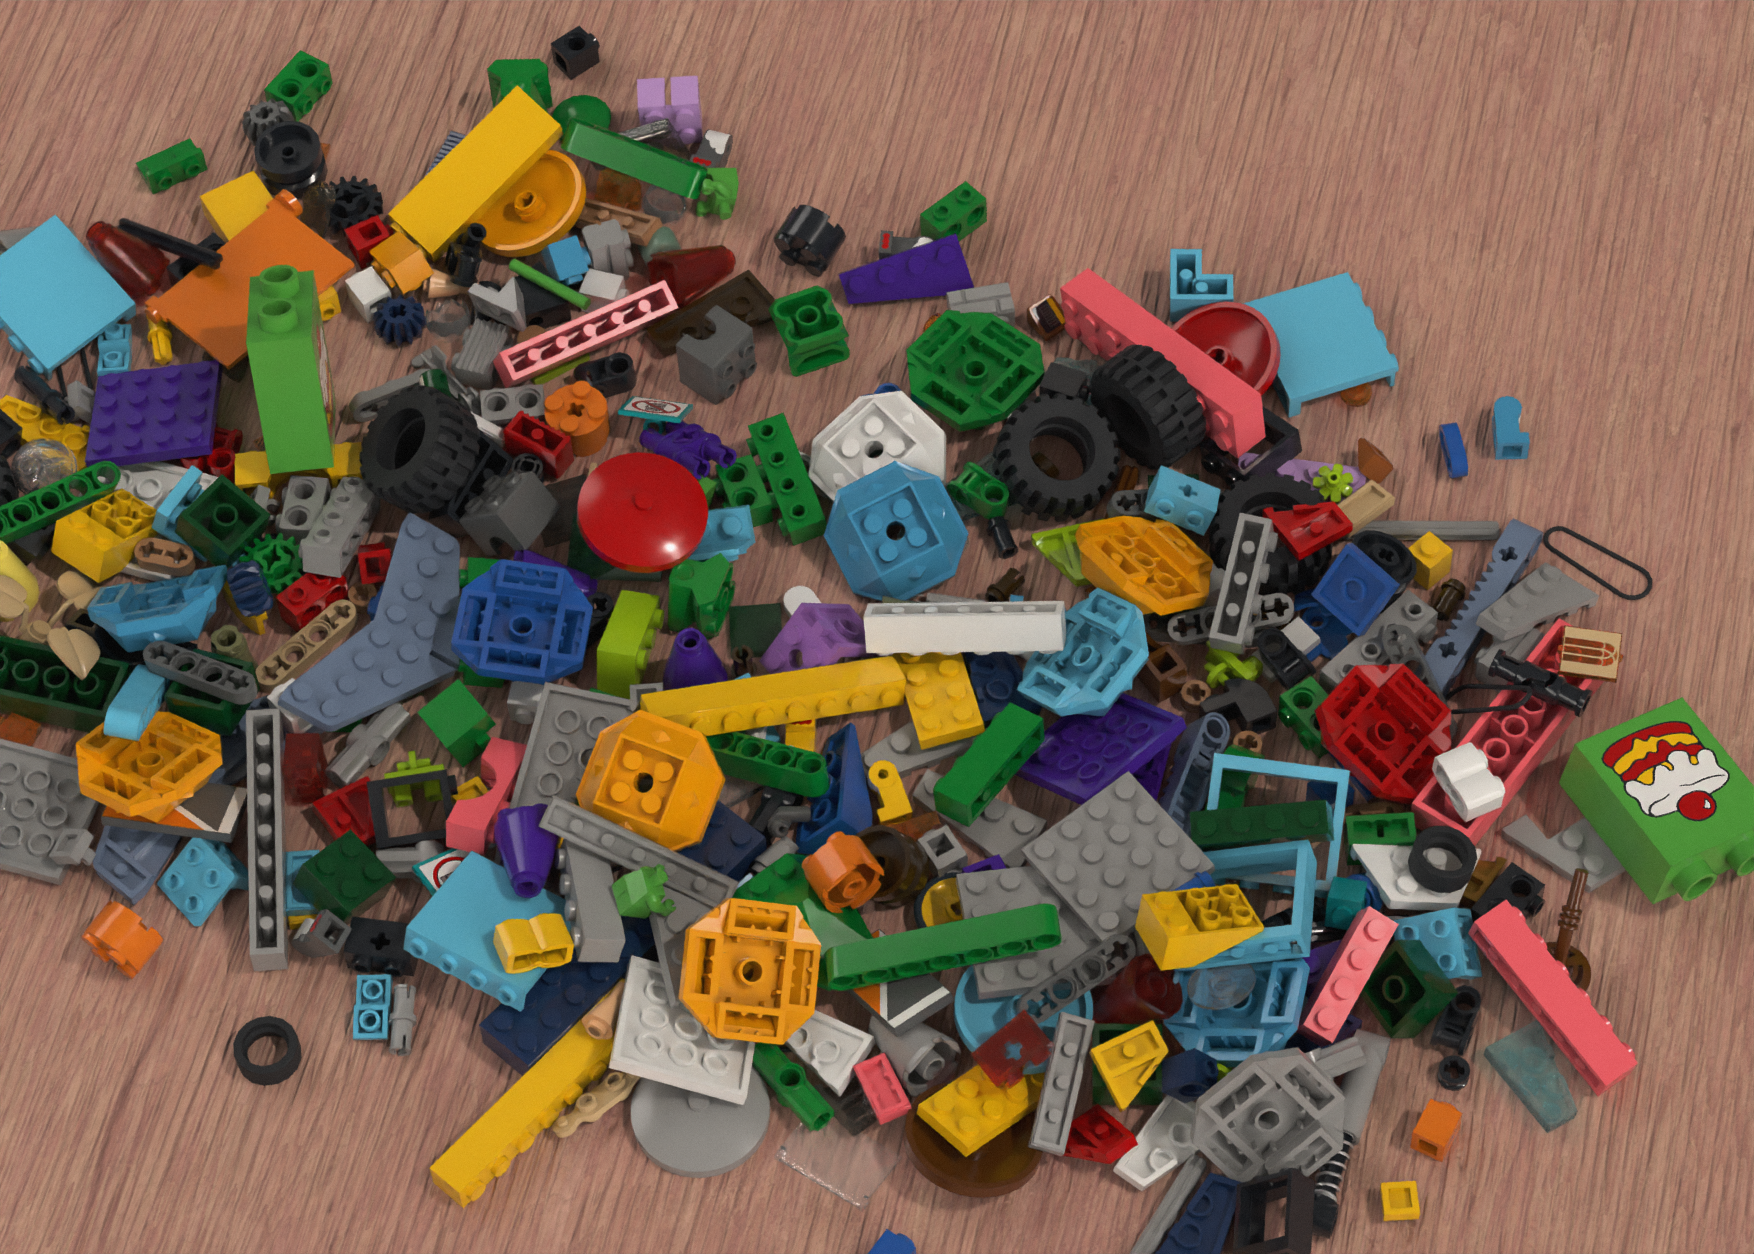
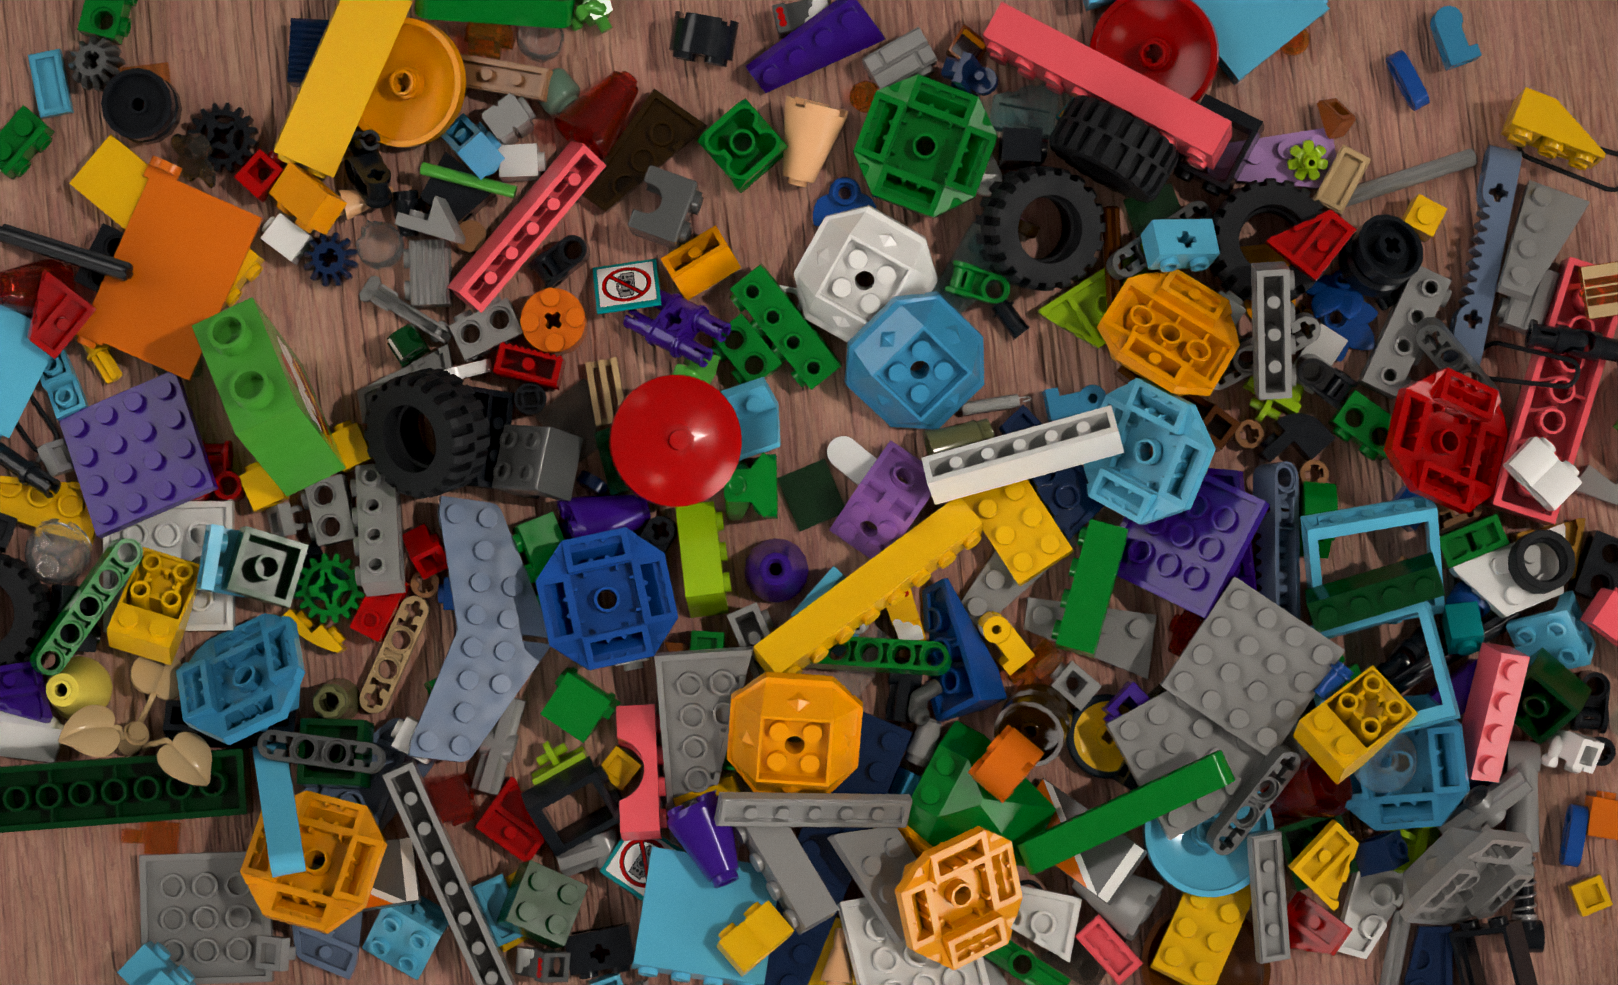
camera: 20 degrees left, 30 degrees up
(138, 277) = (57, 315): none -> red wing
(165, 555) = (220, 604): medium nougat beam -> none
(221, 132) = (50, 83): none -> medium azure tile
(250, 588) = (326, 637): dark blue gear -> none
(367, 403) = (361, 347): light grey plate -> none
(554, 552) = (592, 483): none -> dark blue tile
(642, 892) = (836, 853): bright green piece -> none
(730, 408) = (700, 263): none -> light orange brick
(743, 662) = (818, 553): dark brown pin -> none
(873, 338) = (810, 135): none -> light nougat cone
(994, 1052) = (1222, 892): clear red brick -> none
(1004, 587) = (1031, 375): dark brown pin -> none
(1039, 327) = (969, 75): none -> dark blue hips
(1355, 589) = (1378, 297): blue plate -> none
(1399, 1139) = (1573, 835): none -> blue beam
(1426, 1050) = (1577, 749): none -> white piece
(1451, 593) = (1450, 251): dark brown pin -> none
(1574, 516) = (1550, 128): none -> yellow slope

